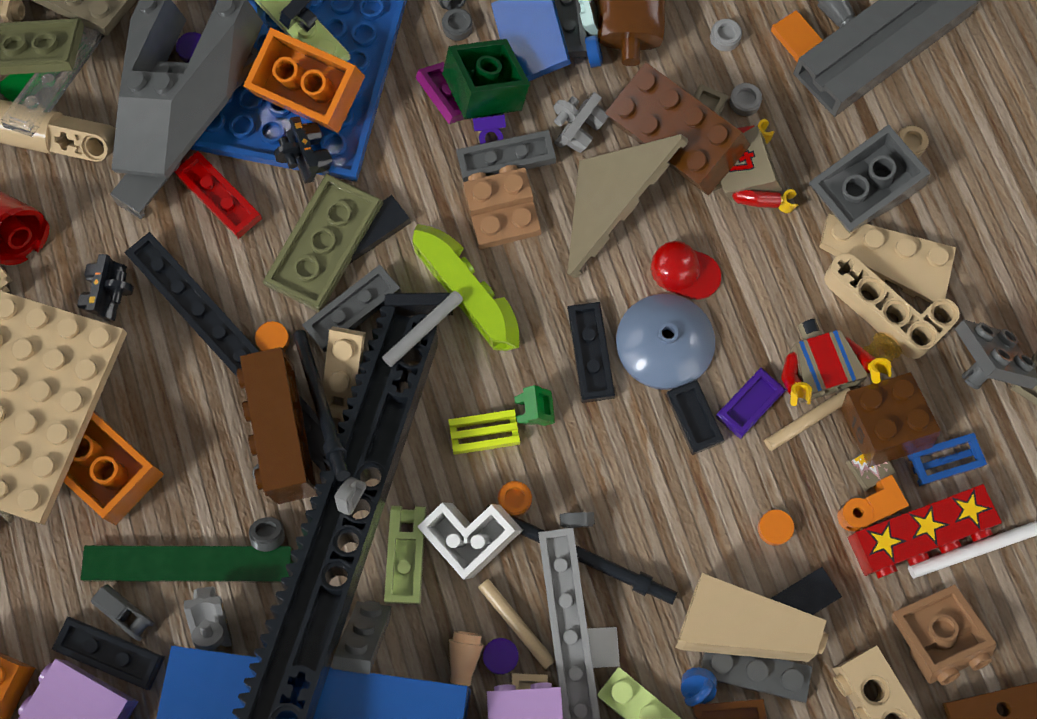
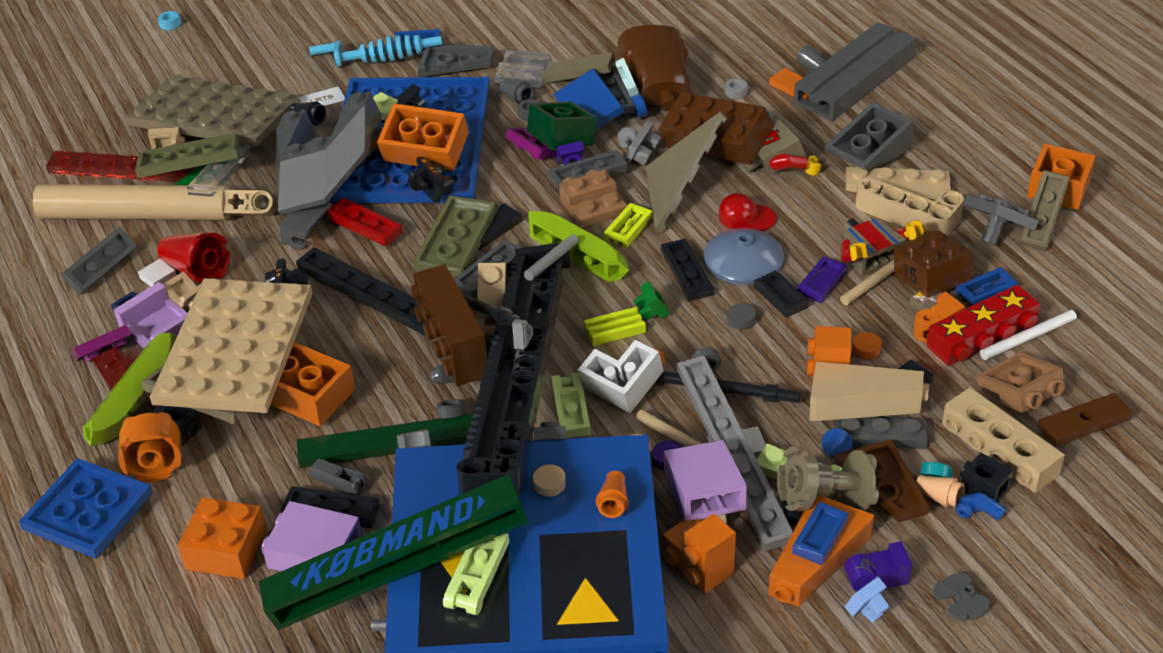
camera: 10 degrees left, 30 degrees down
(519, 281) = (632, 227): none -> neon yellow tile
(638, 446) = (741, 316): none -> dark grey tile
(726, 546) = (828, 346): none -> orange brick

